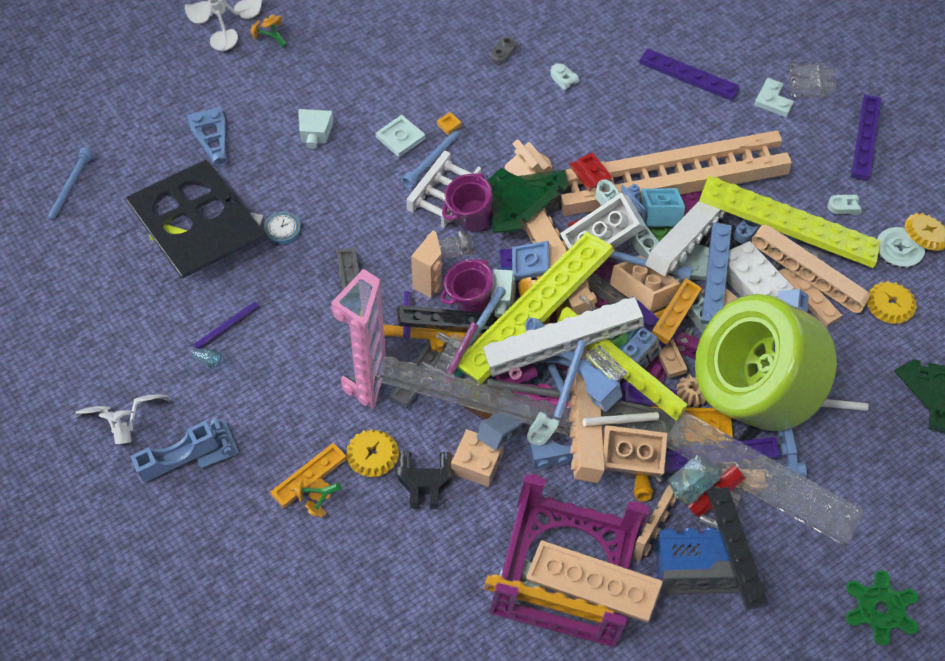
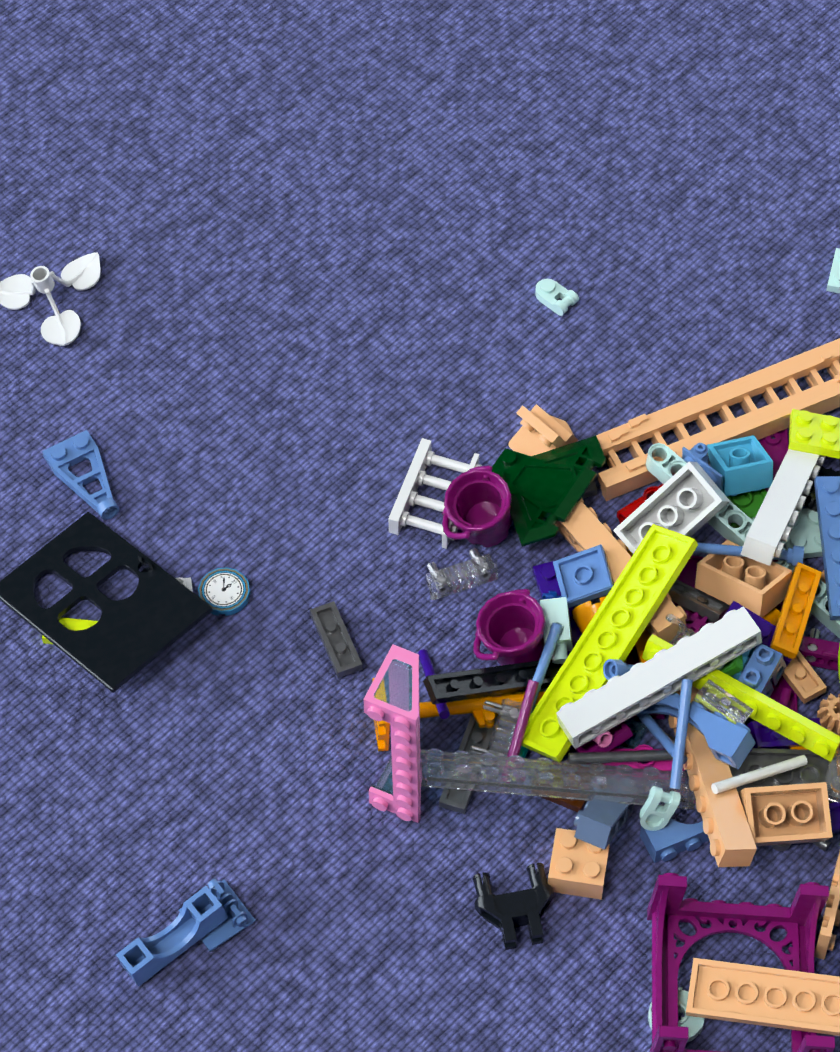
camera: 10 degrees left, 0 degrees up
(120, 430) = (88, 921): white plant -> none
(208, 357) = (174, 795): clear light blue cone -> none
(226, 325) = (186, 746): dark purple bar -> none
(272, 22) = (123, 291): plant -> none
(314, 126) = (228, 435): light aqua torso -> none
(316, 468) = (358, 932): light orange plate -> none
(318, 491) = (379, 951): light orange plant -> none
(375, 464) = (444, 899): yellow gear -> none
(400, 136) = (352, 426): light aqua plate -> none
(410, 179) = (383, 487): medium blue piece -> none
(427, 267) = (447, 612): light nougat slope -> none
(449, 123) = (415, 396): light orange plate -> none
(503, 50) = (461, 270): flat silver plate -> none
(548, 600) = (727, 1035): light orange plate -> none
(590, 171) = (632, 433): red plate -> none
(642, 488) = (805, 861): light orange cone -> none
(689, 74) = (727, 262): dark purple plate -> none

